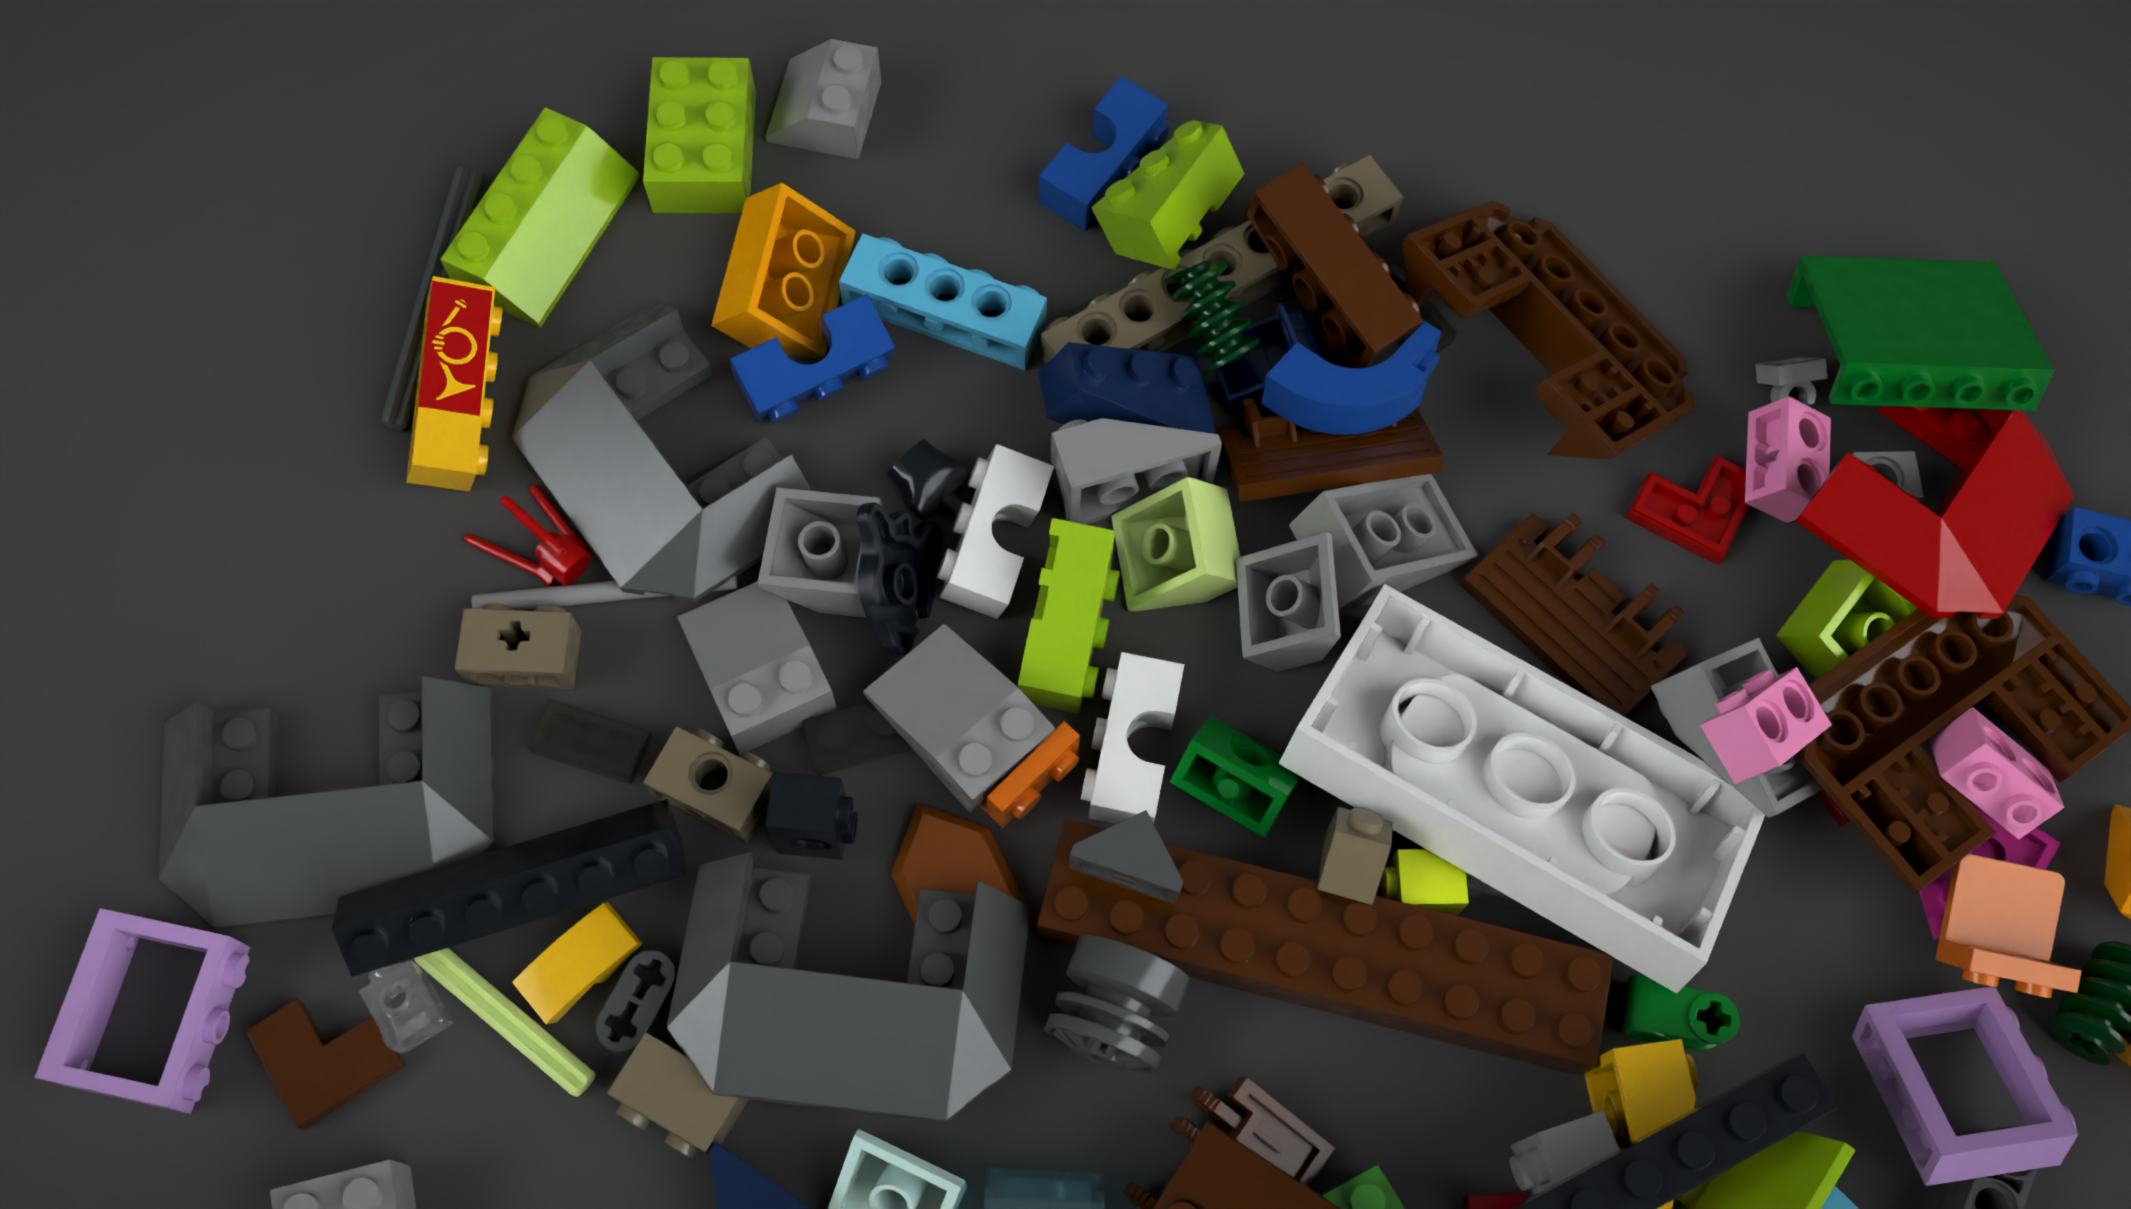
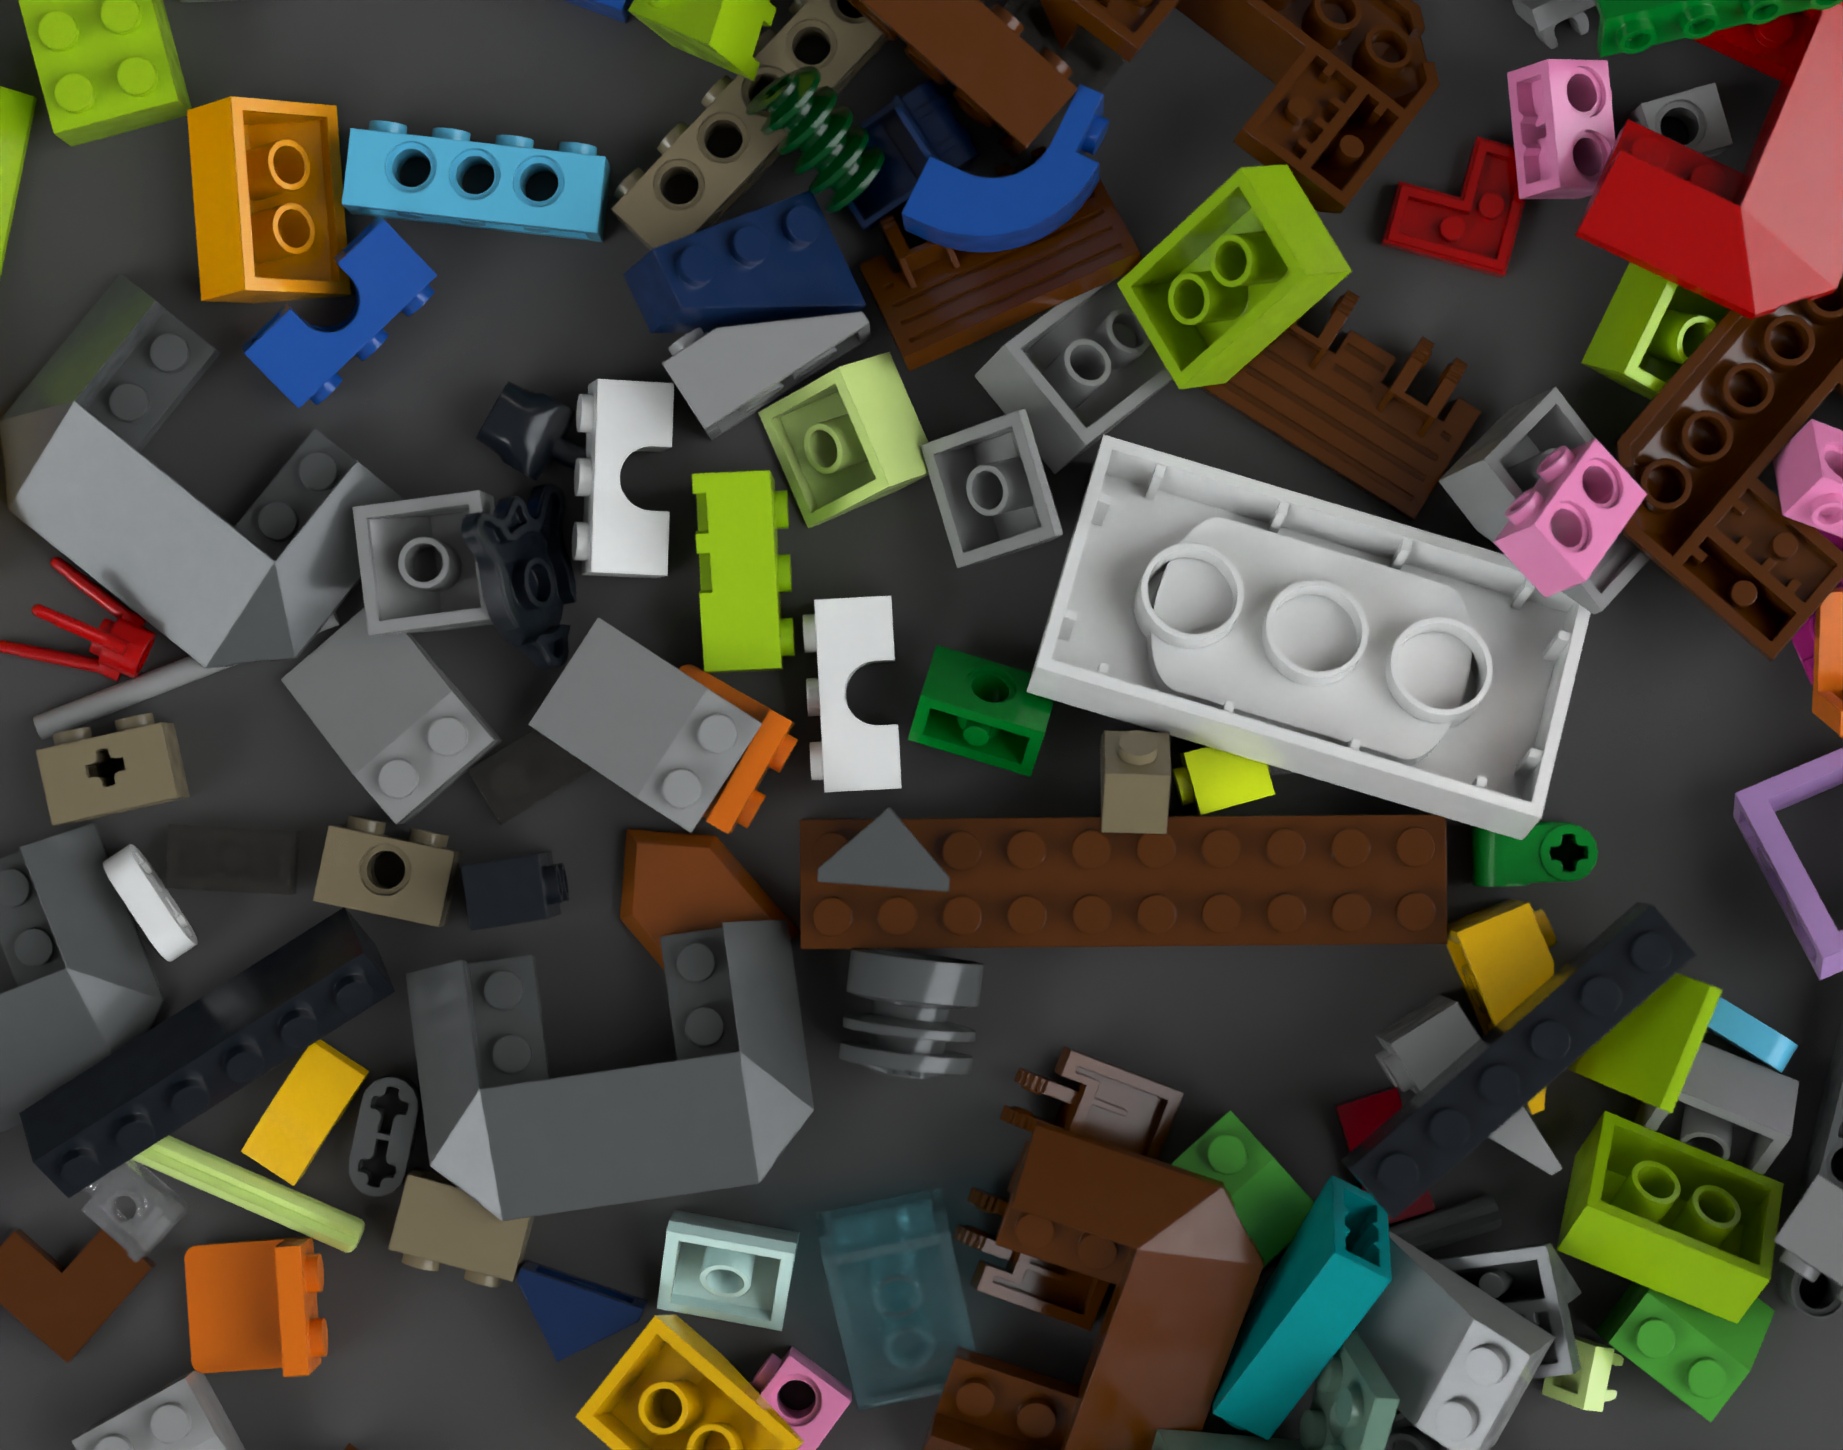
camera: 10 degrees left, 20 degrees up
(476, 1120) = (255, 1306): none -> orange bracket
(511, 758) = (150, 902): none -> white beam
(1516, 486) = (1233, 276): none -> lime brick

